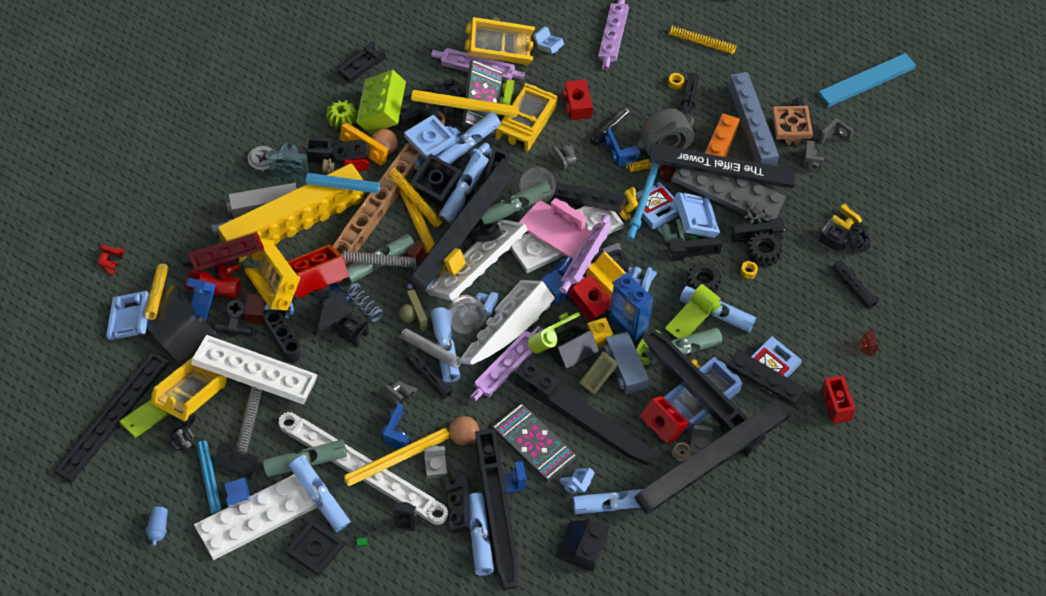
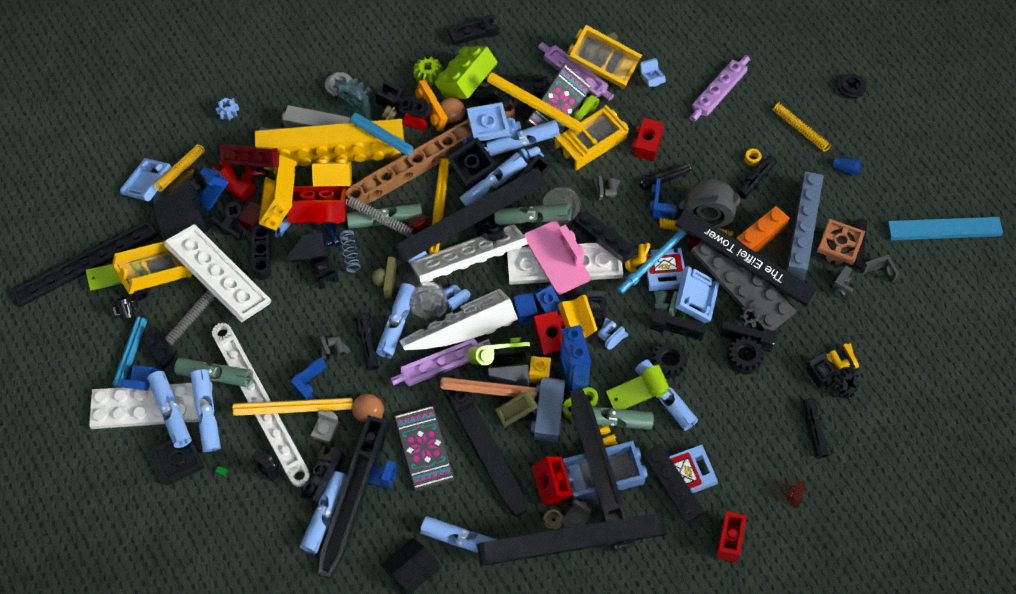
camera: 30 degrees right, 5 degrees up
(103, 258) = (156, 123): red piece -> none
(157, 524) = (61, 376): medium blue piece -> none
(167, 221) = (227, 108): none -> light blue gear
(275, 499) = (168, 406): none -> light blue piece
(311, 238) = (331, 173): none -> yellow brick
(413, 199) = (442, 173): yellow piece -> none
(438, 351) = (385, 327): light grey piece -> none
(454, 261) = (444, 247): yellow tile -> none
(563, 365) = (485, 387): none -> nougat axle
(579, 481) = (441, 504): light blue bracket -> none
(585, 254) = (562, 291): lavender plate -> none
(749, 275) = (721, 363): yellow axle -> none
(761, 57) = (848, 165): none -> blue cone

